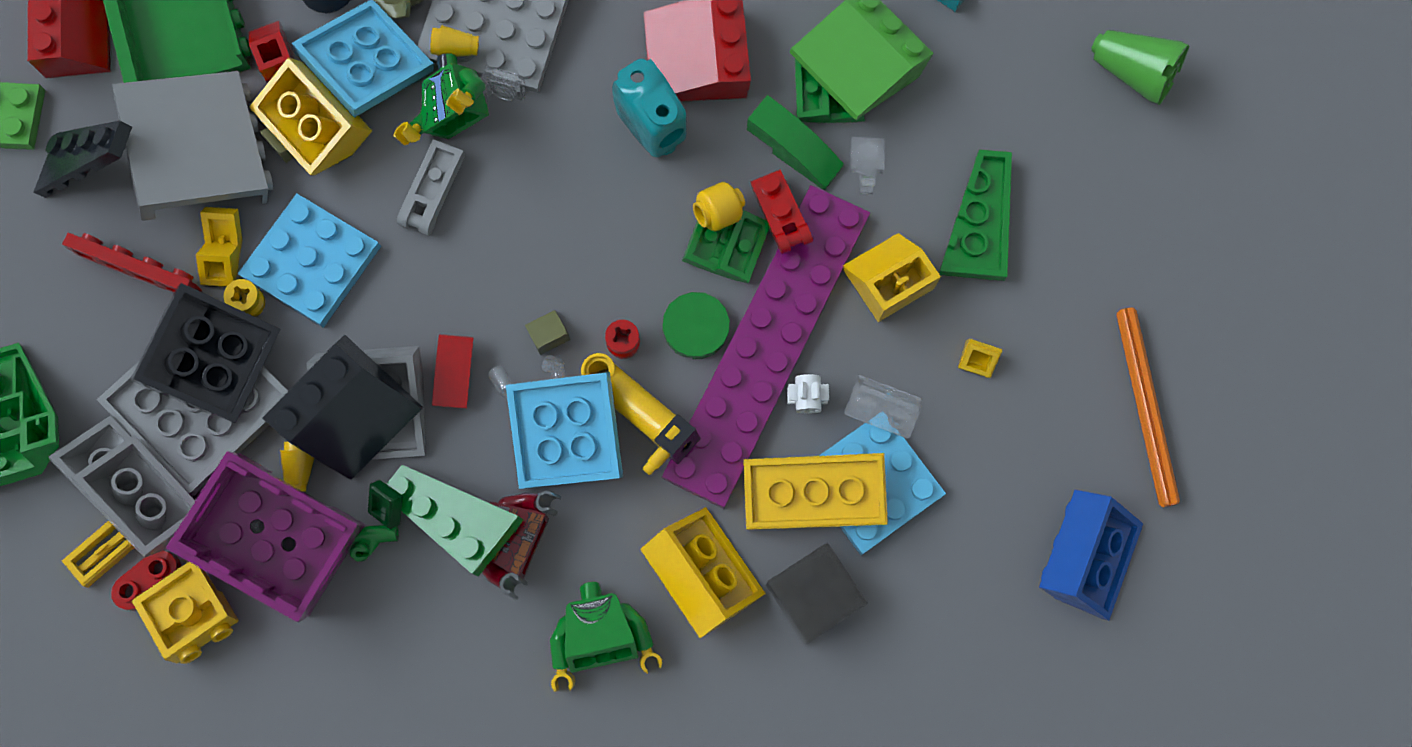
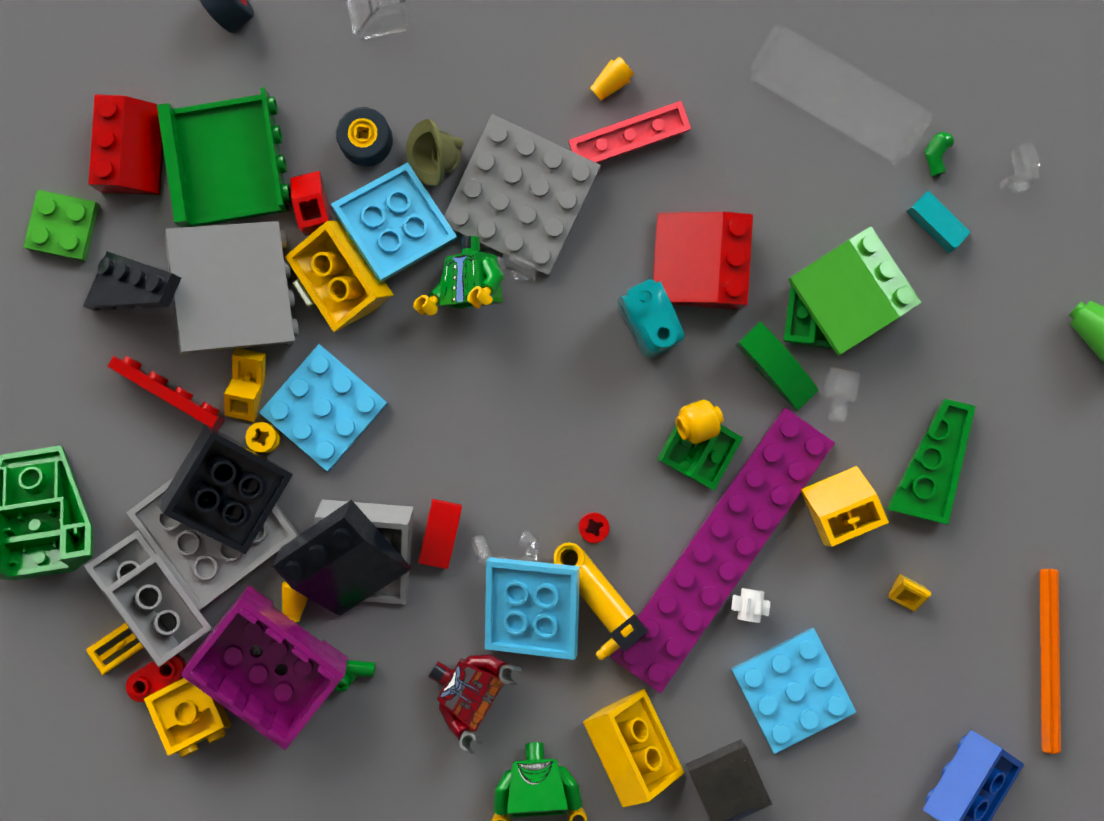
camera: 10 degrees right, 10 degrees up
(384, 504) = (367, 646): dark green tile -> none
(431, 186) = (440, 355): light grey plate -> none
(453, 41) = (478, 224): yellow cone -> none
(454, 519) = (428, 675): wing -> none
(547, 332) = (527, 508): olive slope -> none
(696, 325) = (660, 523): green tile -> none
(781, 211) = (754, 431): red plate -> none
(815, 491) = (743, 695): yellow tile -> none
(883, 406) = (816, 626): clear bracket -> none

